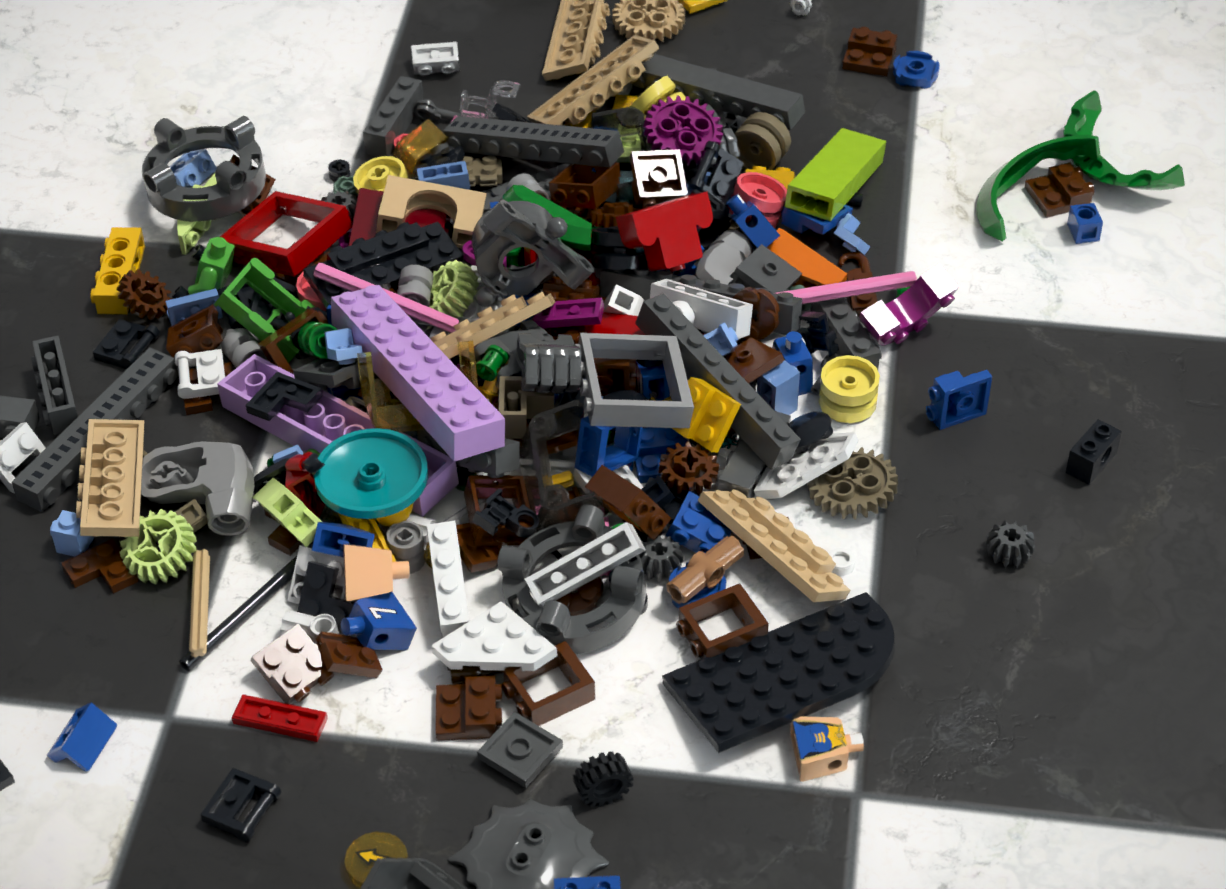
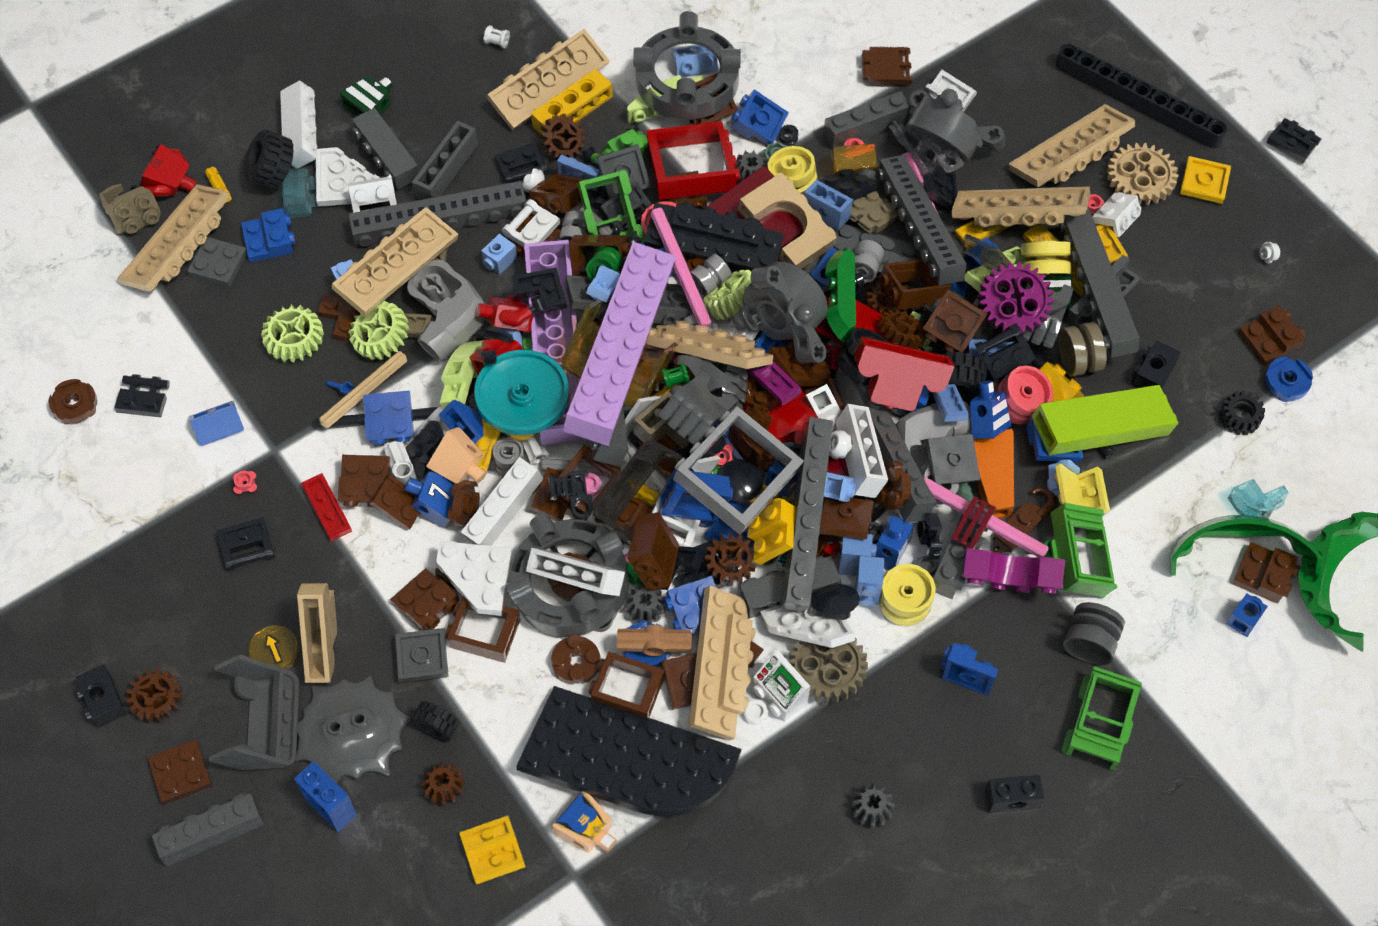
camera: 45 degrees right, 15 degrees up
(71, 266) = (546, 78): none -> tan plate
(71, 613) = (292, 341): none -> yellowish green gear
(158, 340) = (533, 179): none -> white plate
(172, 754) = (241, 477): none -> coral plate
(180, 615) = (344, 388): none -> blue hand
(195, 416) = (499, 254): none -> light blue brick
(228, 268) = (625, 159): none -> dark grey plate
(254, 602) = (388, 417): none -> blue plate
(271, 439) = (510, 312): none -> red torso
(299, 172) = (759, 117): none -> blue plate
(359, 77) = (886, 66): none -> reddish brown plate
(411, 598) = (464, 503): none -> reddish brown plate
(412, 793) = (317, 630): none -> tan brick
(472, 65) = (948, 126): none -> dark grey piece
(653, 631) = (576, 673): none -> reddish brown plate
(667, 822) = (446, 791): none -> reddish brown gear
(668, 45) = (1118, 212): none -> white bracket
(724, 232) = (951, 404): none -> medium blue plate
(761, 582) = (679, 679): none -> reddish brown plate
(770, 835) = (492, 849): none -> yellow slope
(810, 393) = (869, 580): none -> medium blue brick
(820, 122) = (1159, 356): none -> black brick
(838, 275) = (963, 541): none -> dark red tile
(843, 518) = (781, 687): none -> white slope
(881, 231) = (1083, 488): none -> light yellow bracket
(914, 110) = (1241, 424): none -> black tyre
(921, 254) = (1065, 547): none -> bright green piece
(993, 153) = (1250, 499): none -> clear light blue brick
(1010, 307) = (1094, 633): none -> dark grey wheel
(1082, 379) = (1095, 742): none -> bright green piece

